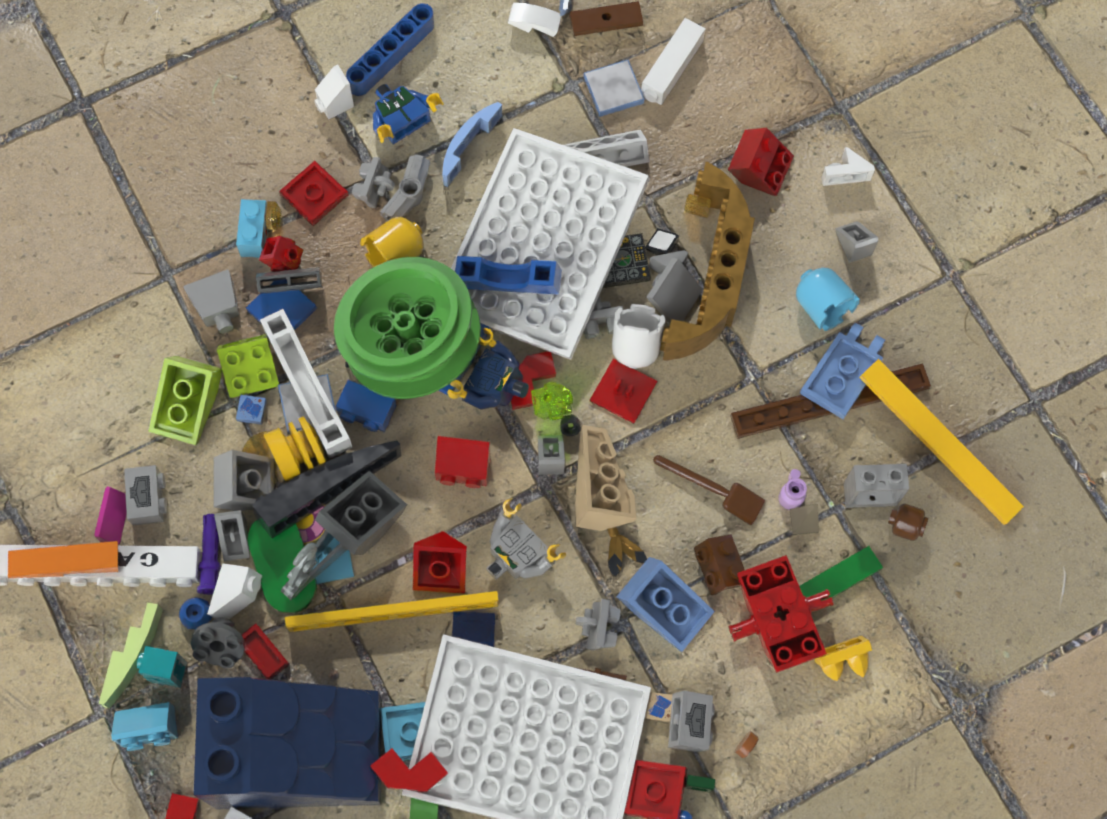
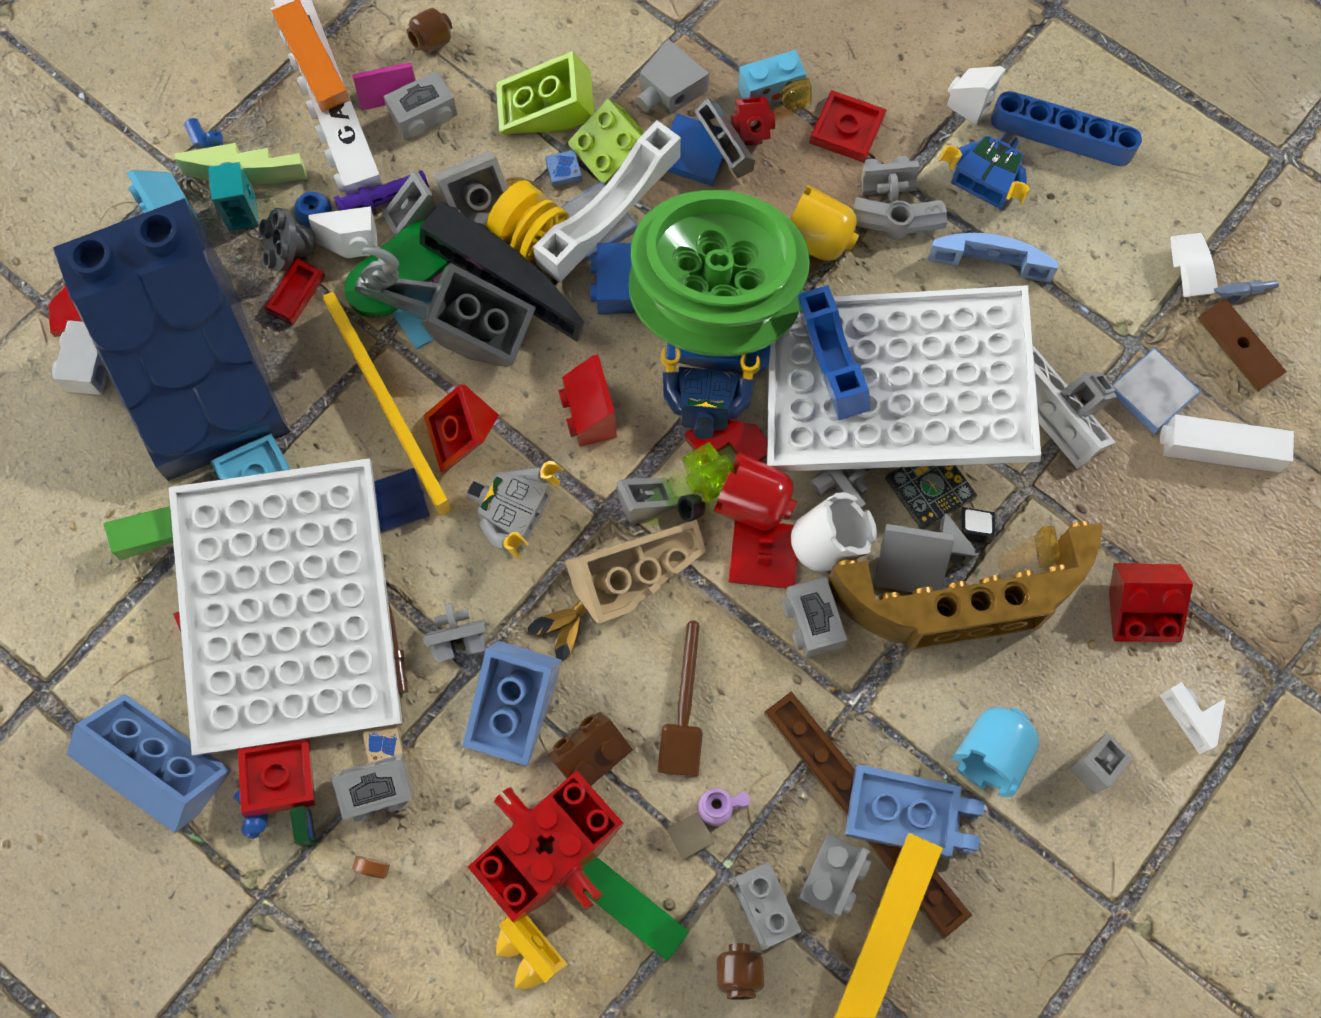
camera: 70 degrees right, 0 degrees up
(78, 463) = (429, 30): none -> reddish brown head
(87, 681) = (199, 137): none -> blue arm
(398, 776) = (184, 472): red tile -> none
(585, 374) = (756, 494): none -> red cylinder
(601, 123) = (1094, 390): none -> light grey window
(686, 375) = (814, 617): none -> brick
(867, 437) = (834, 876): none -> light grey bracket

